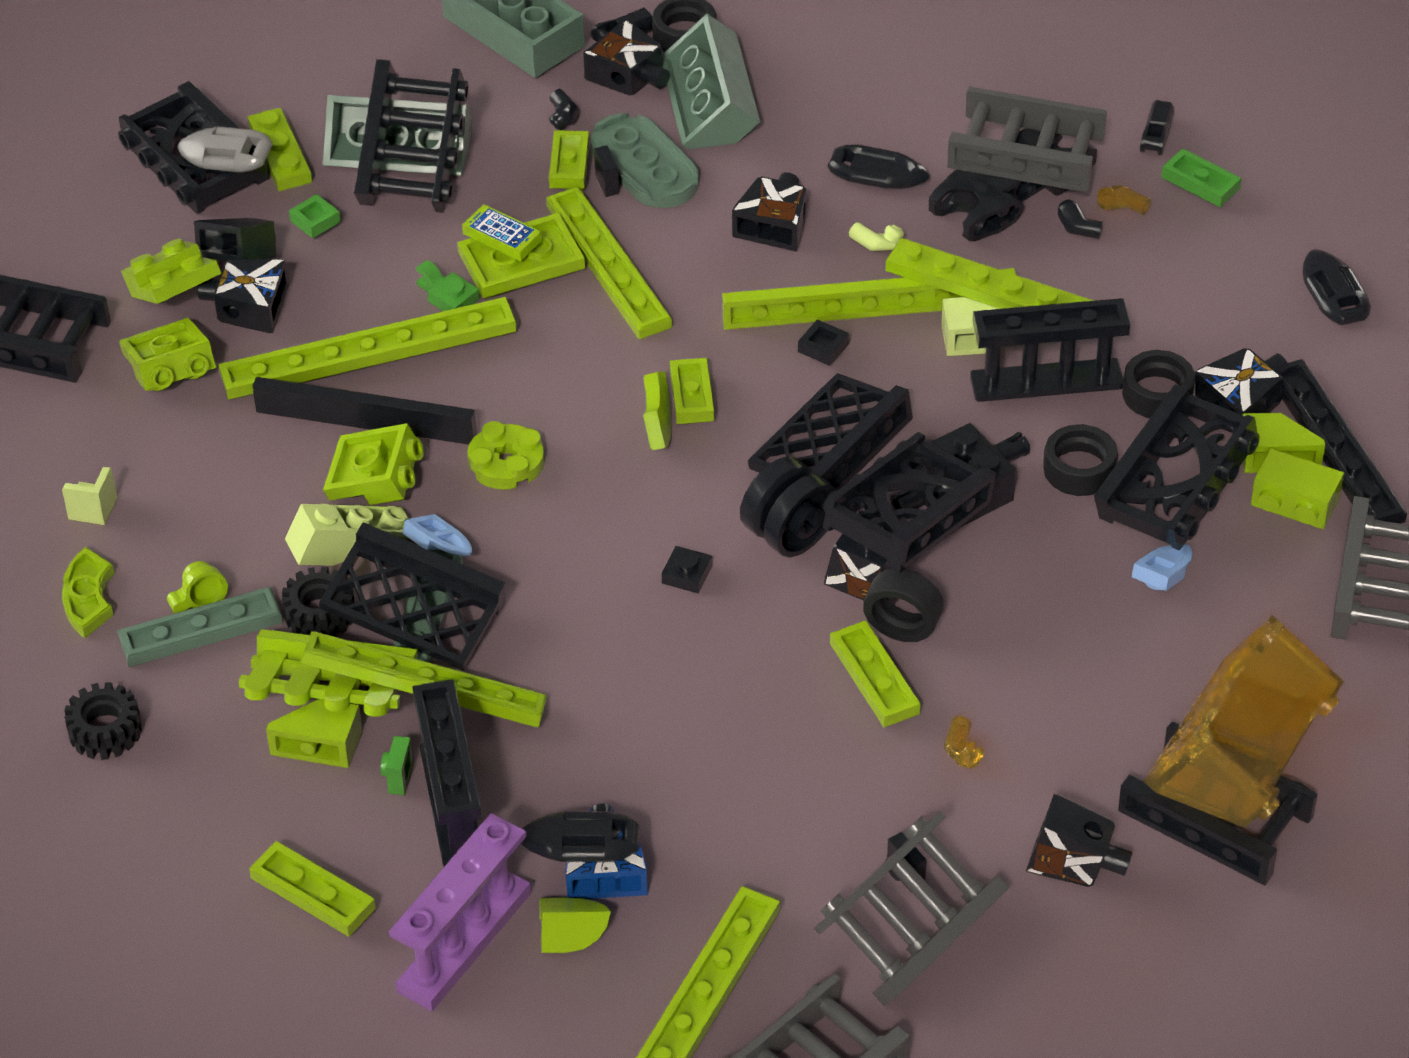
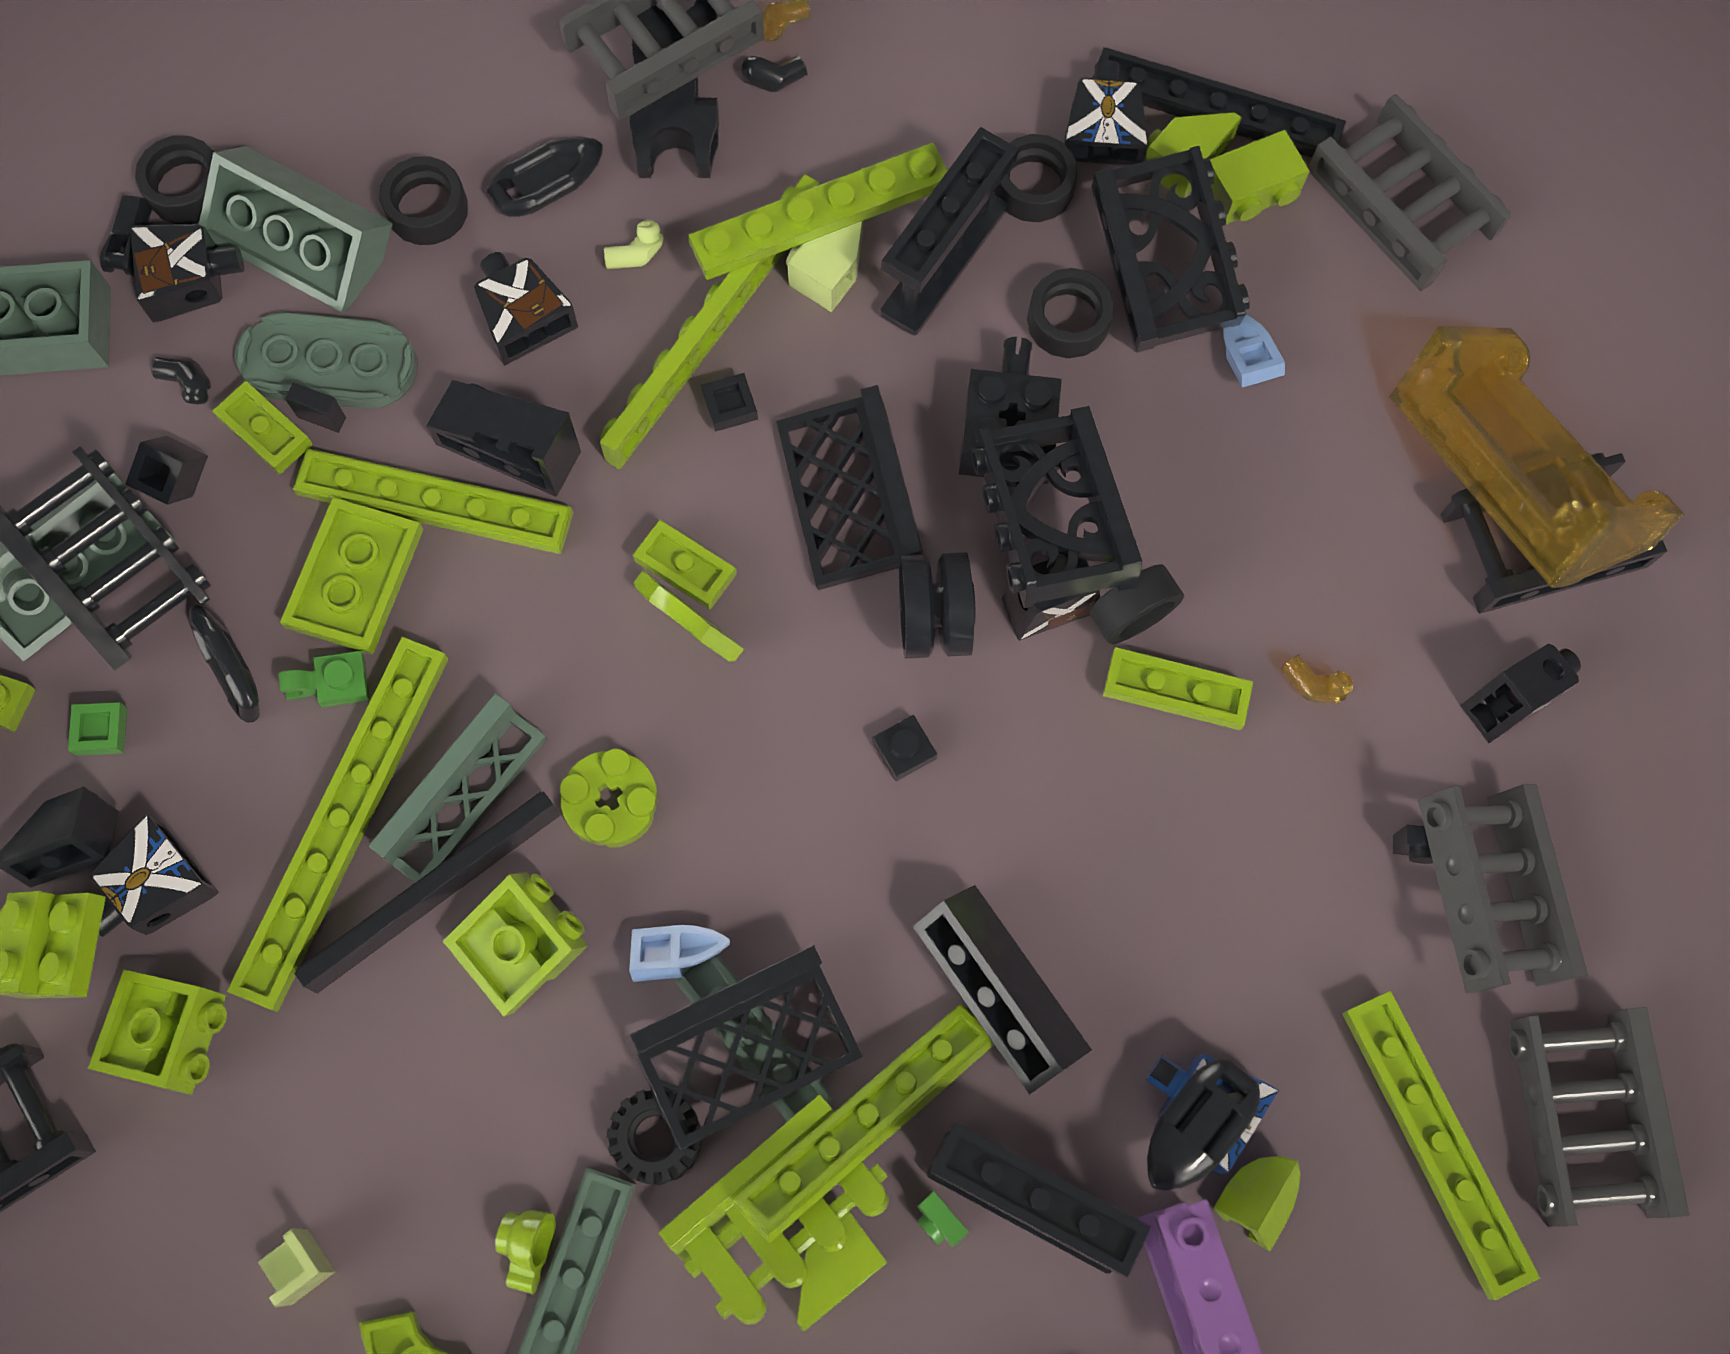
camera: 55 degrees left, 25 degrees up
(327, 532) = (583, 1035): yellowish green slope -> none
(408, 240) = (225, 663): none -> black piece
(441, 376) = (447, 778): none -> sand green fence
(495, 134) = (166, 469): none -> black brick
(502, 232) = (314, 572): tile -> none
(573, 699) = (1001, 988): none -> black brick
(683, 259) = (507, 435): none -> black wedge
(794, 145) = (418, 172): none -> black tyre

